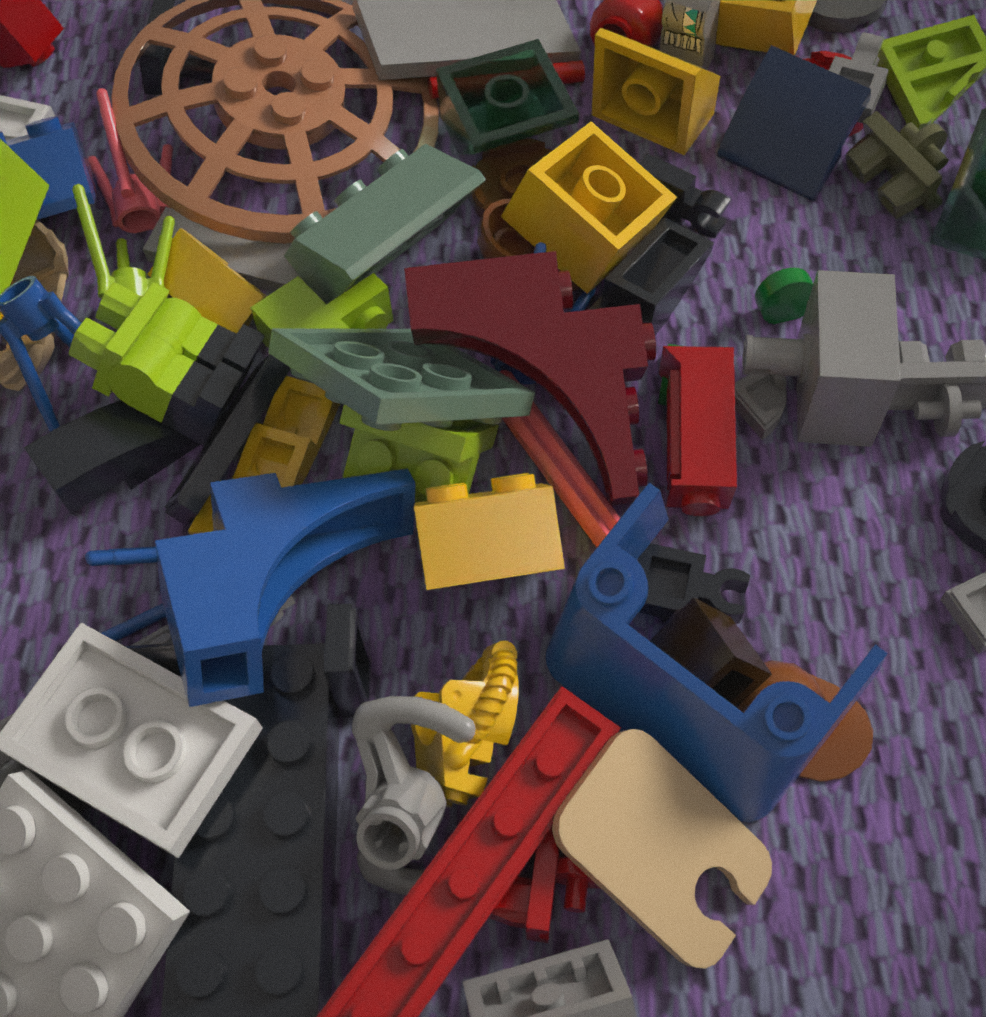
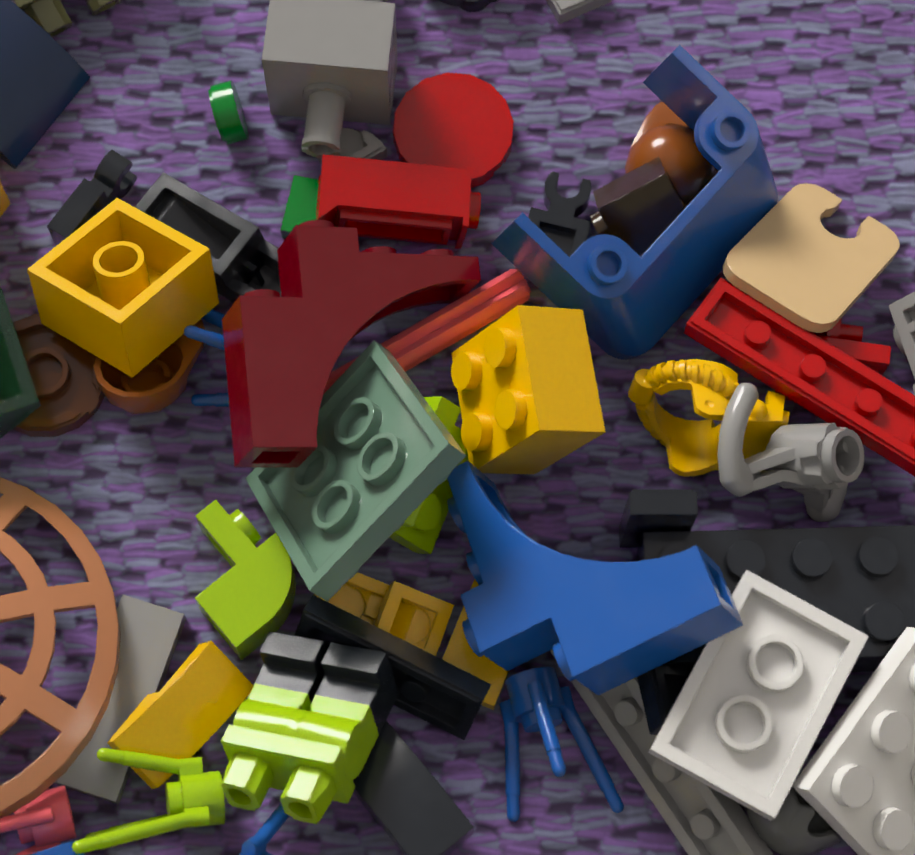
camera: 95 degrees left, 10 degrees up
(380, 219) = (129, 504): sand green slope -> none
(794, 493) = (454, 124): none -> red tile

